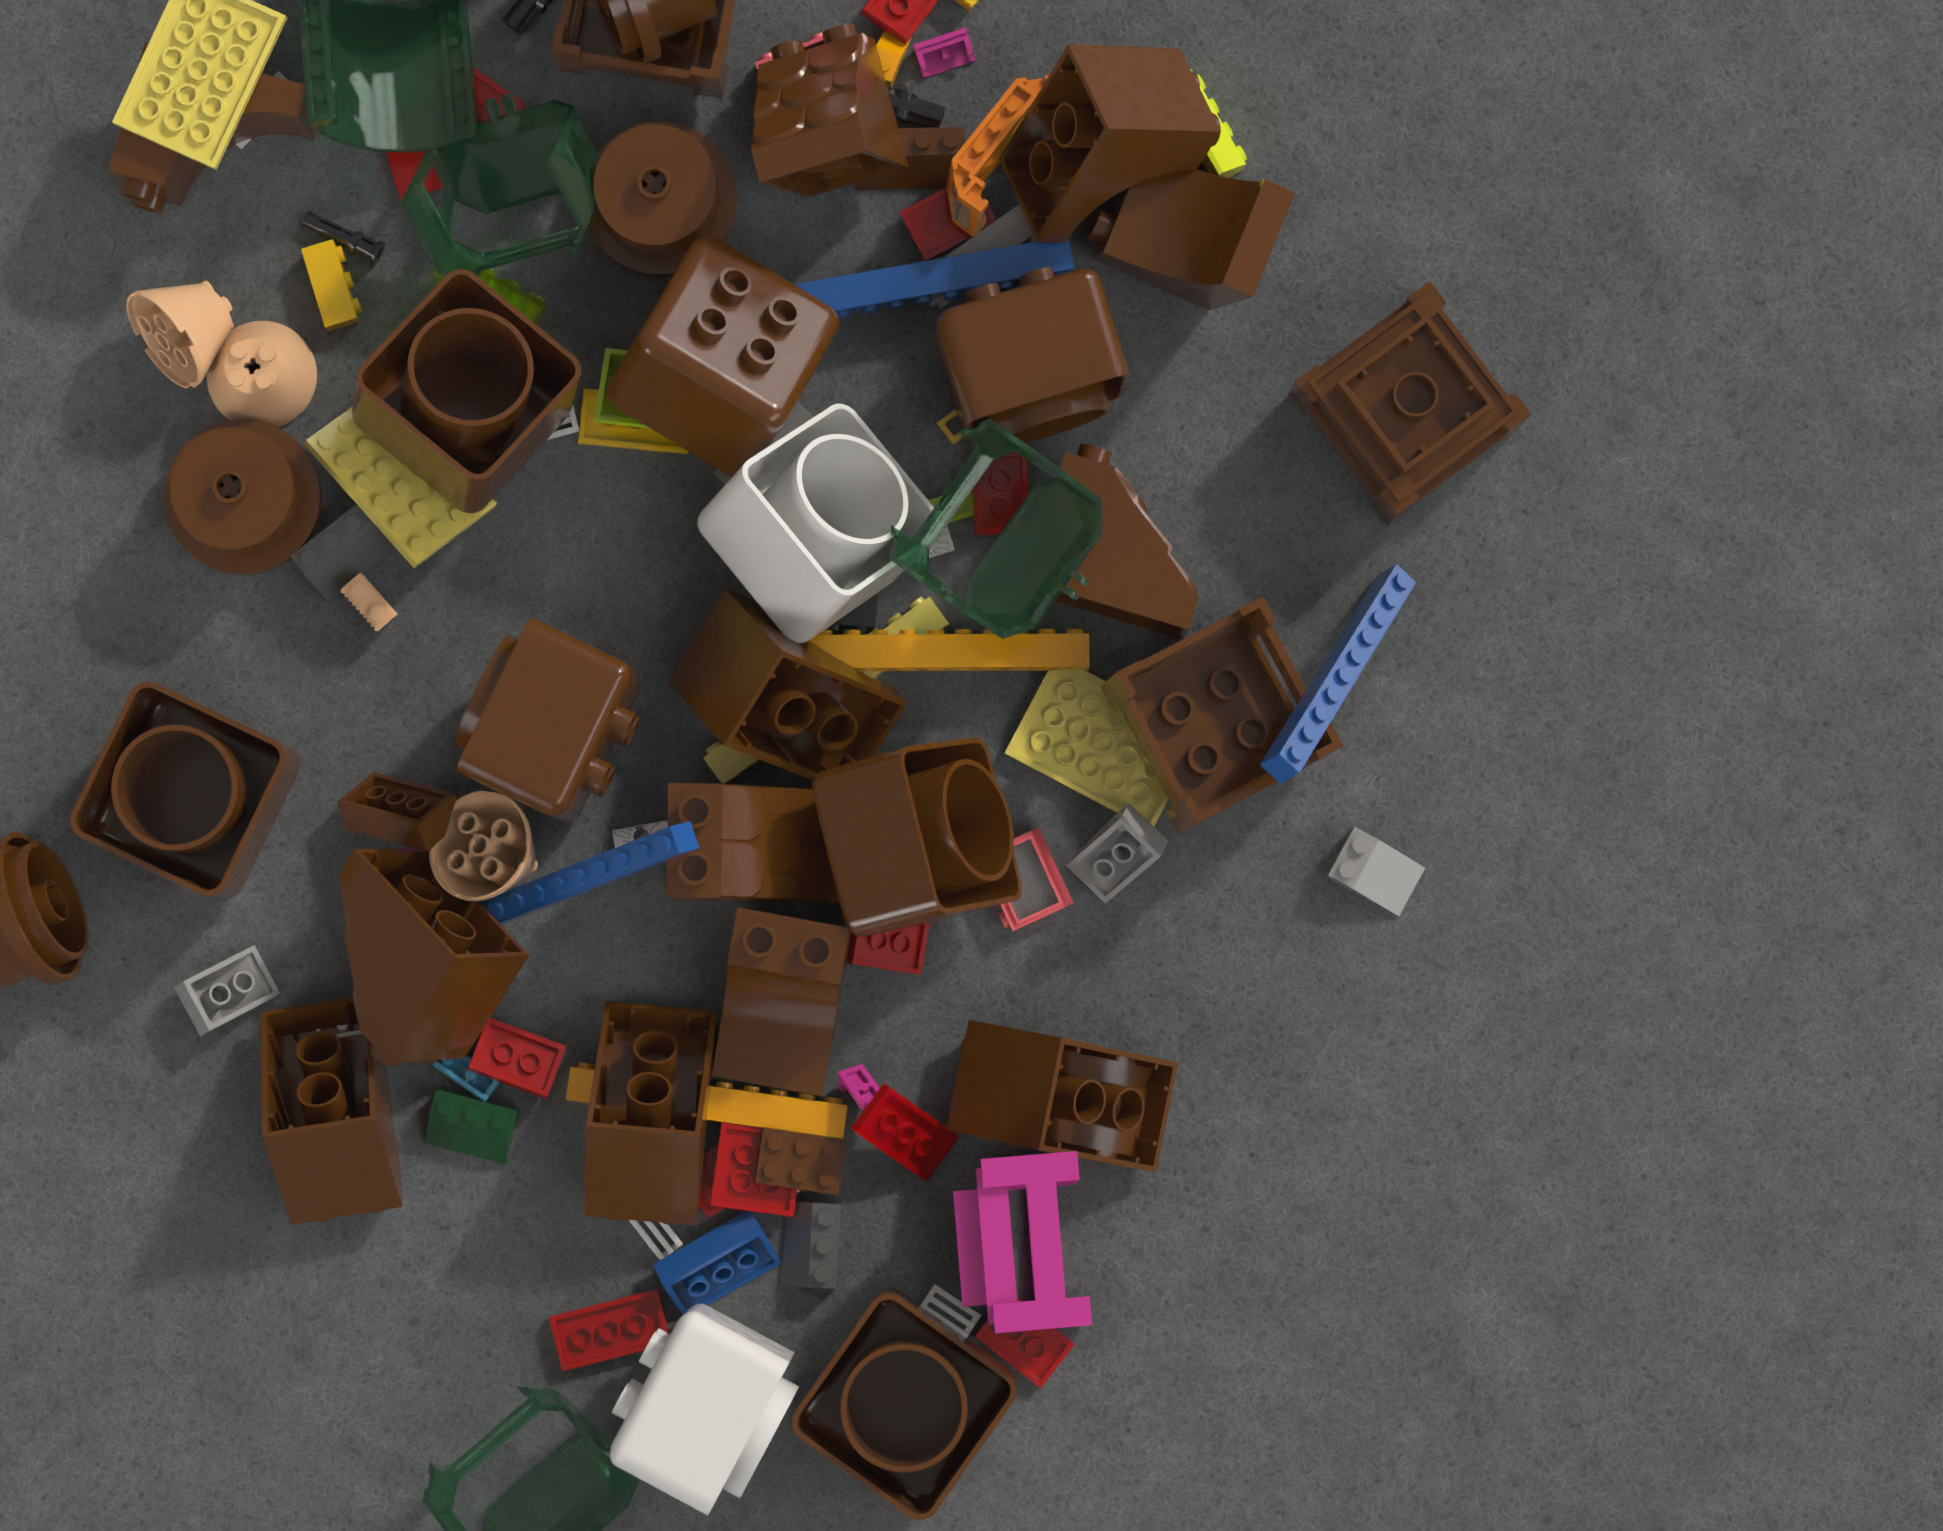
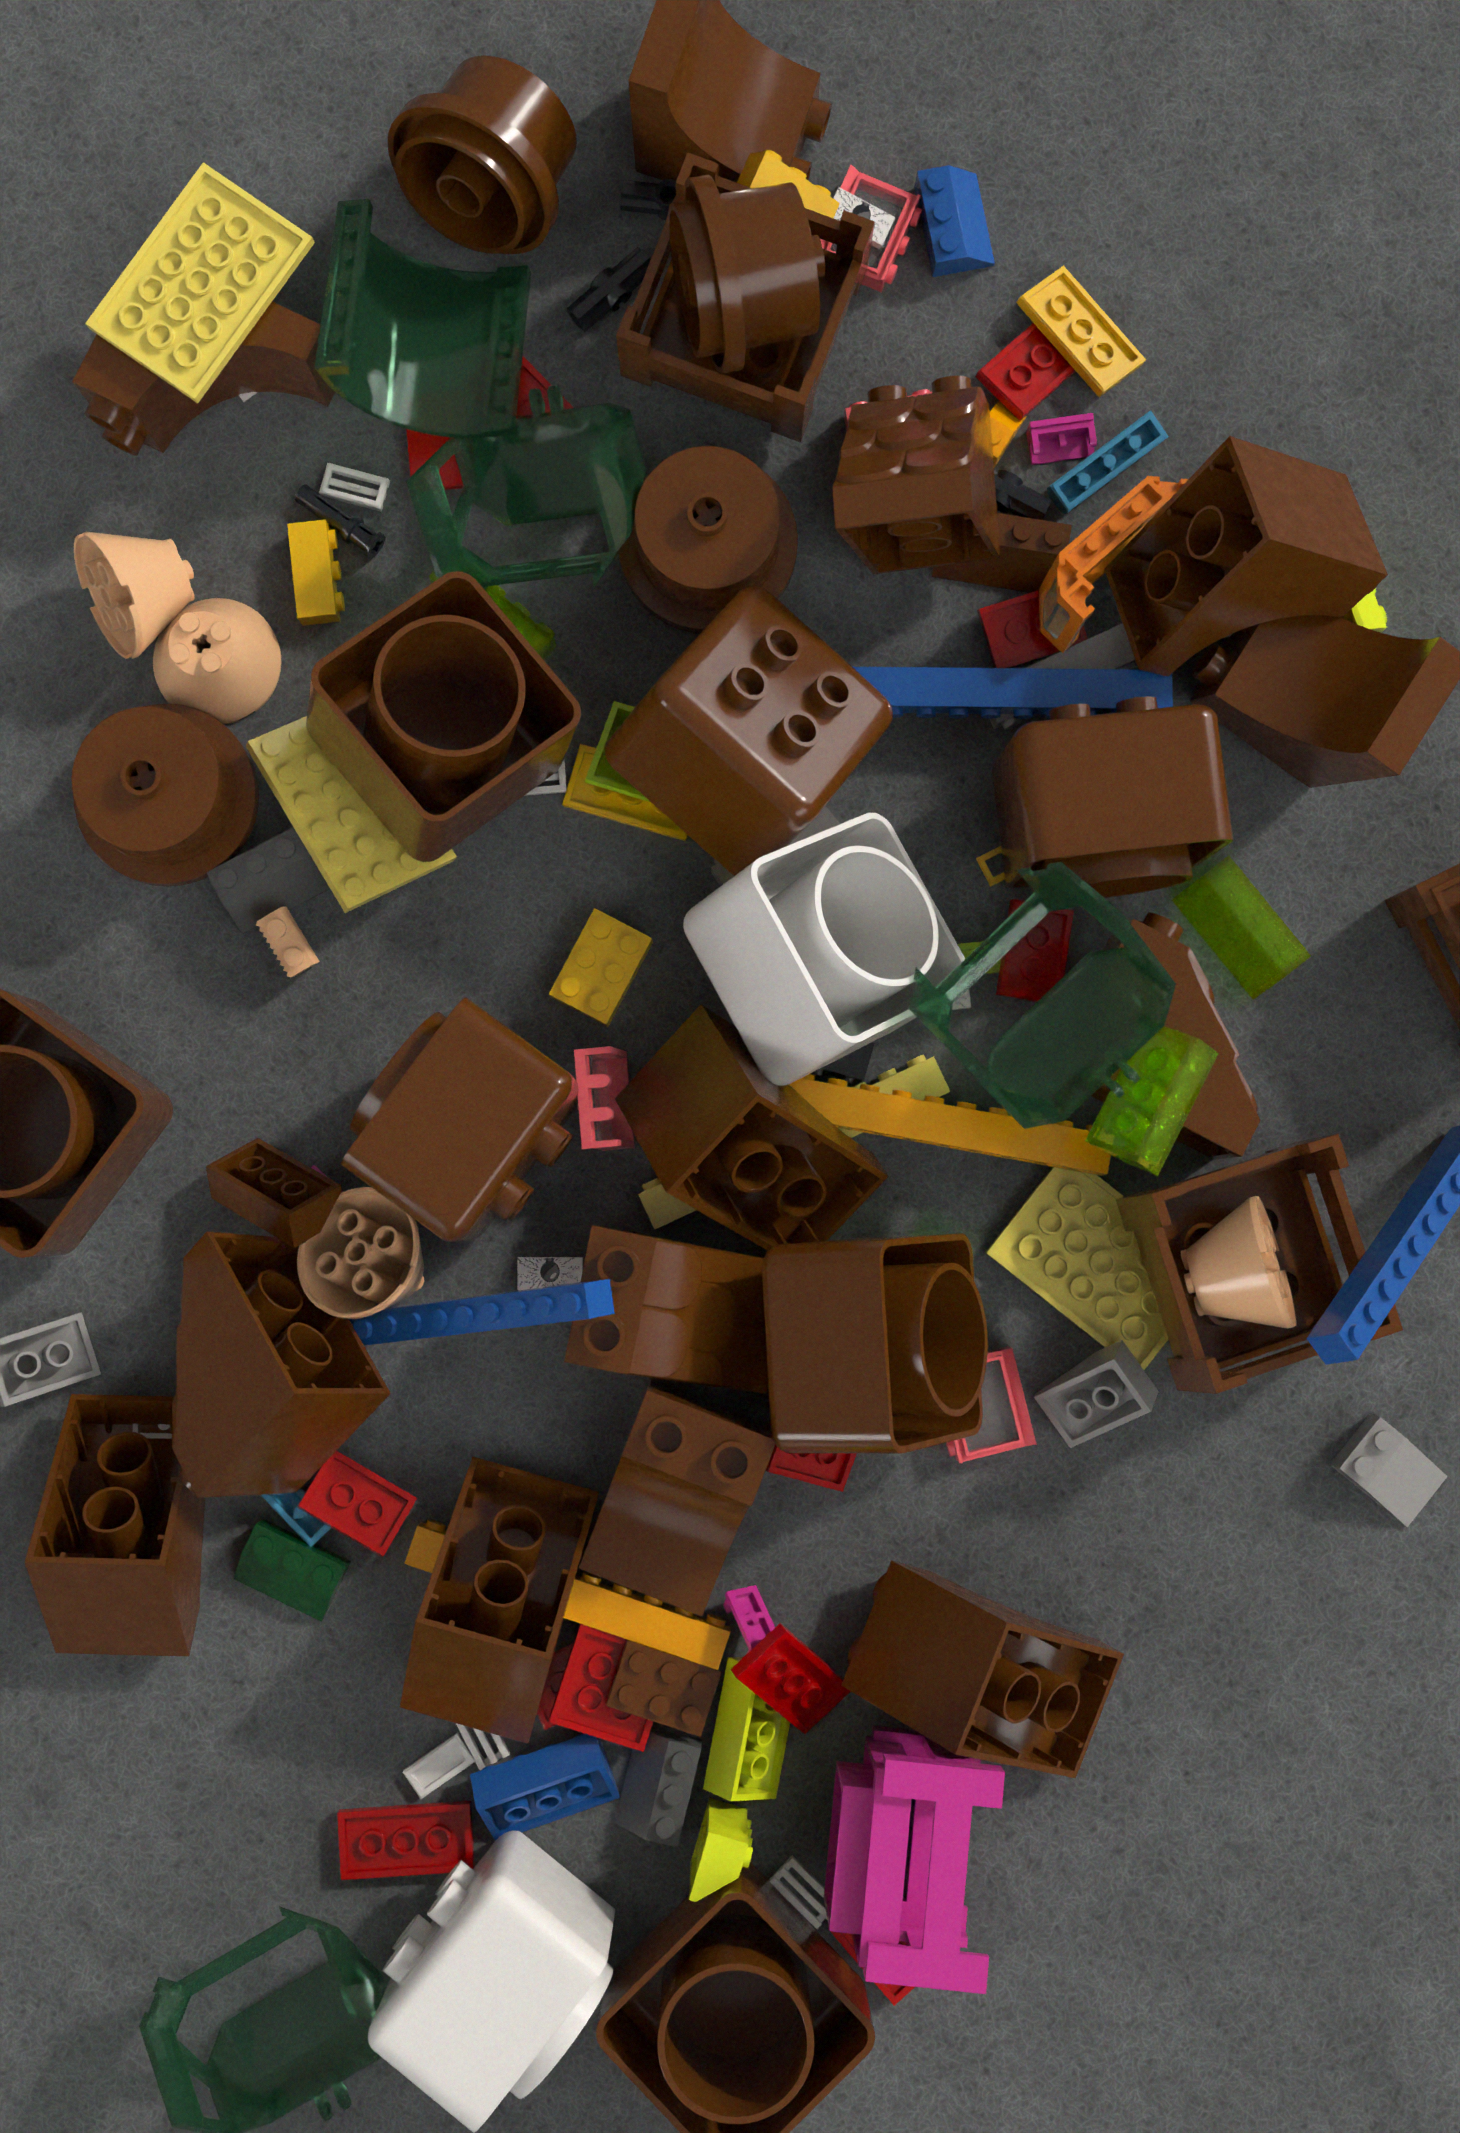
camera: 10 degrees right, 0 degrees up
(349, 215) = (353, 499): none -> white tile
(626, 1264) = (439, 1765): none -> white tile
(636, 574) = (601, 967): none -> yellow brick
(654, 666) = (600, 1079): none -> coral window
(869, 1276) = (720, 1848): none -> neon yellow slope
(878, 1194) = (745, 1744): none -> neon yellow slope
(986, 66) = (1106, 462): none -> dark azure brick
(1106, 604) = (1152, 1111): none -> clear neon green slope
(1169, 440) = (1241, 927): none -> clear neon green slope
(1206, 722) = (1238, 1270): none -> light nougat cone

